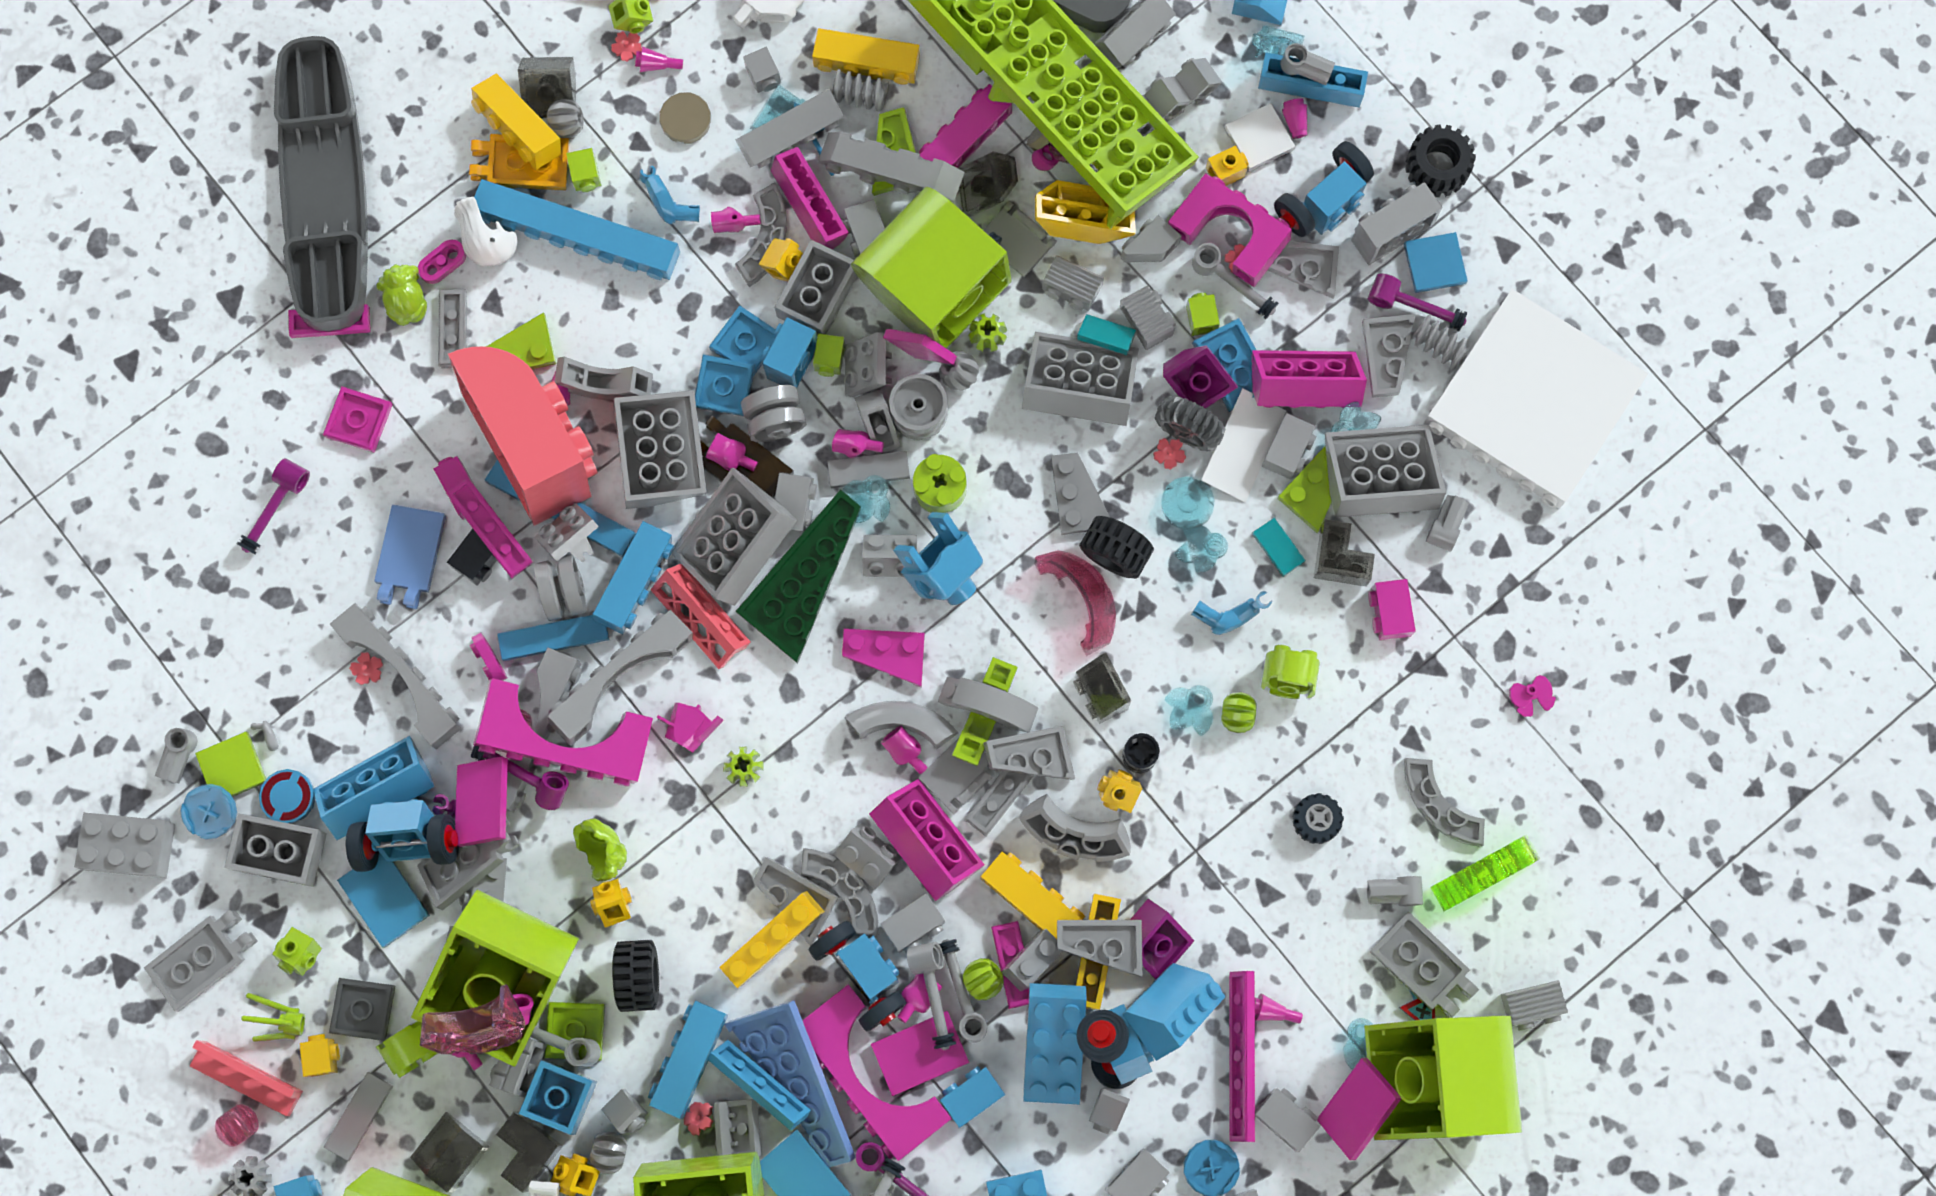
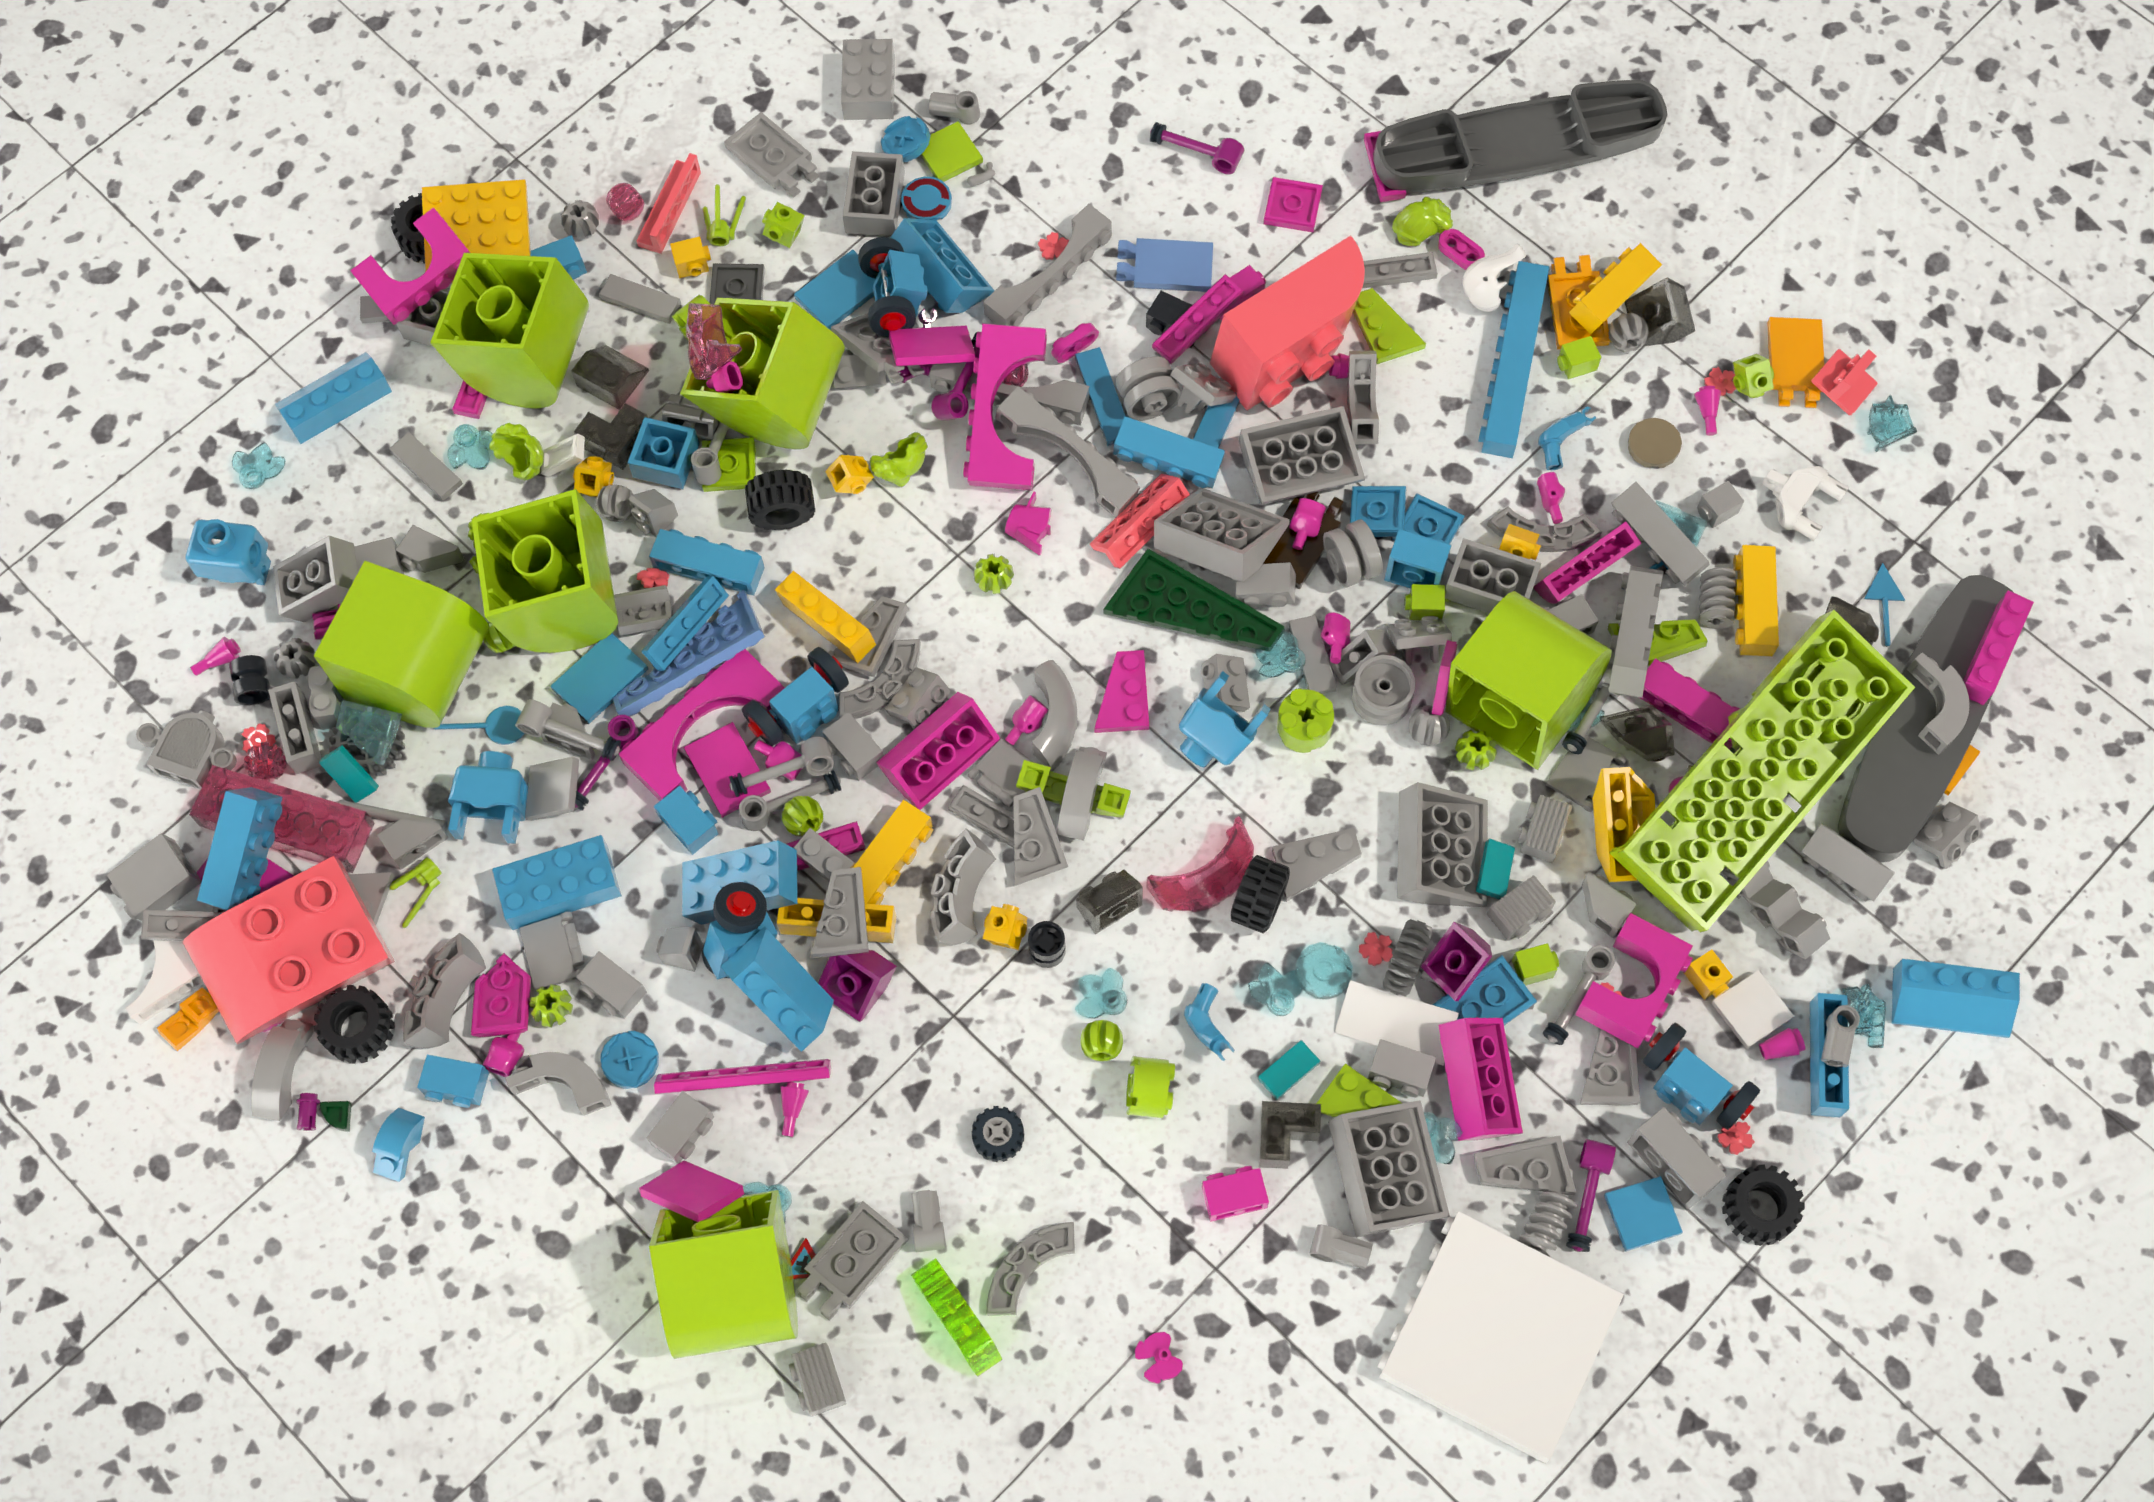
camera: 85 degrees right, 10 degrees down
(1379, 174) = (1736, 1138): none -> coral plant

